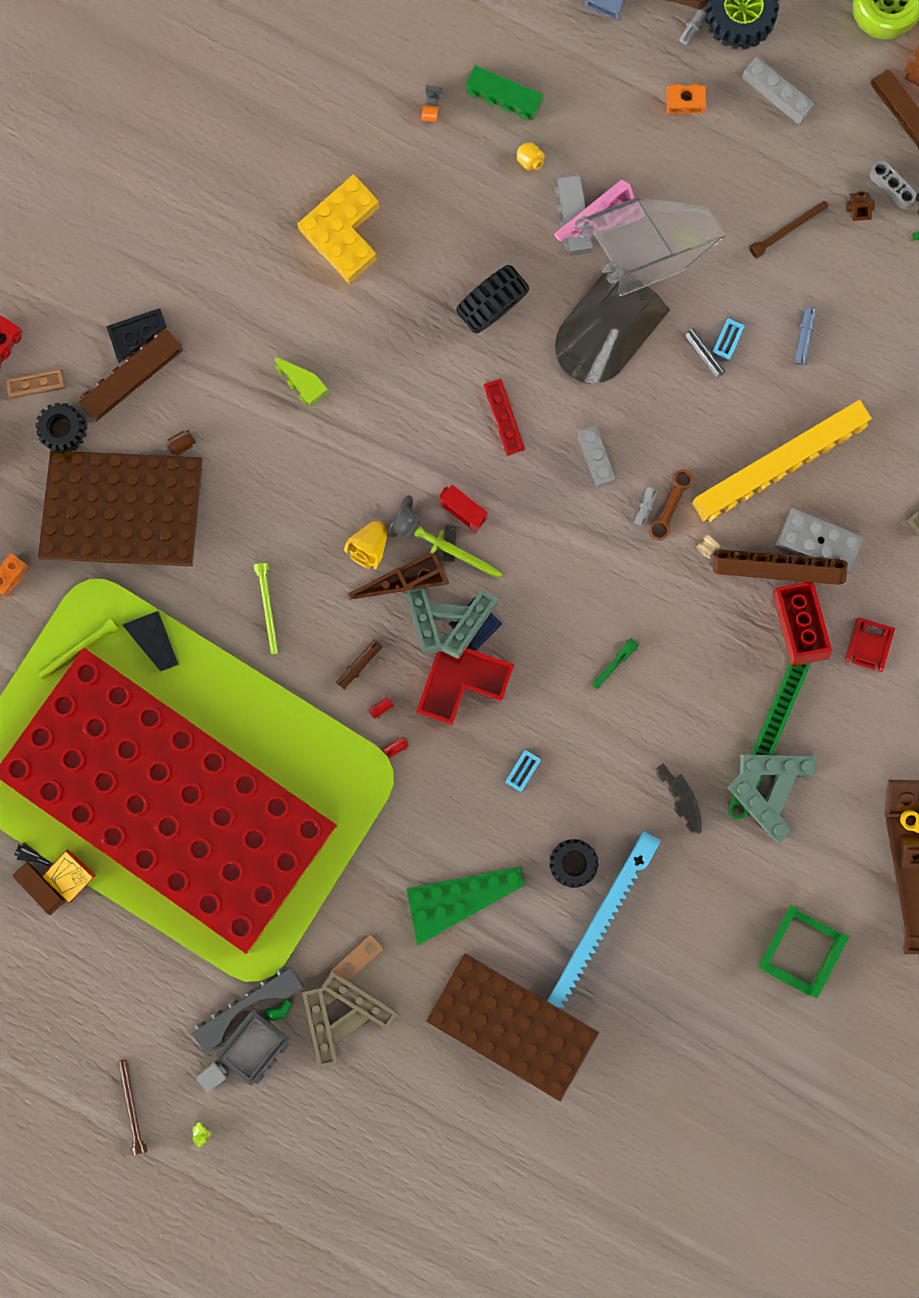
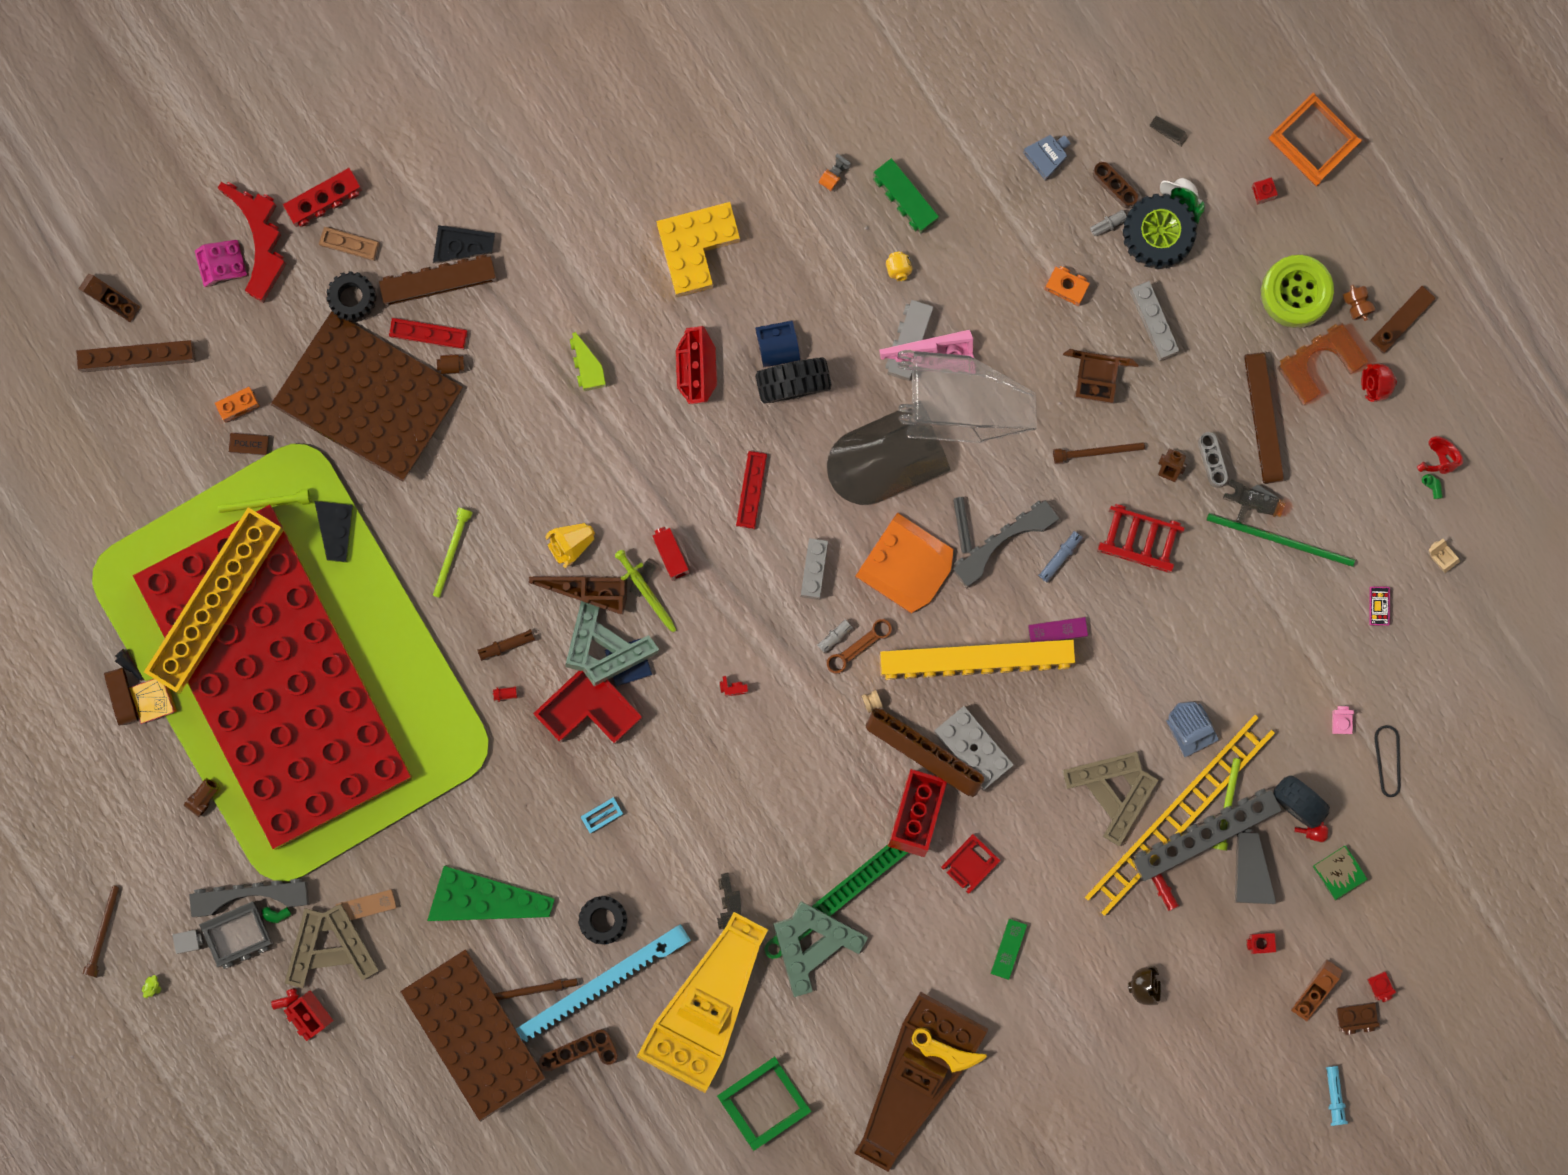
camera: 25 degrees right, 0 degrees up
(37, 605) = (248, 444): none -> reddish brown tile
(77, 758) = (213, 600): none -> yellow brick
(146, 426) = (428, 333): none -> red tile
(157, 944) = (199, 800): none -> reddish brown piece
(329, 1083) = (285, 1002): none -> red arm
(355, 1086) = (308, 1015): none -> red brick
(396, 747) = (501, 736): red pin -> none
(398, 332) = (696, 365): none -> red wedge
(405, 521) = (614, 537): dark grey piece -> none
(459, 276) = (778, 343): none -> dark blue brick
(563, 942) = (557, 985): none -> reddish brown bar
(583, 597) = (736, 689): none -> red bracket
(613, 994) = (576, 1053): none -> reddish brown beam
(623, 654) = (752, 755): green pin -> none
(675, 412) = (907, 565): none -> orange wedge
(706, 929) = (687, 1037): none -> yellow wing
(722, 353) = (977, 533): medium azure tile -> none
(735, 383) = (1037, 520): none -> dark grey arch
(754, 162) = (1097, 375): none -> reddish brown piece
(837, 401) = (1058, 630): none -> magenta tile
(861, 302) = (1145, 557): none -> red fence

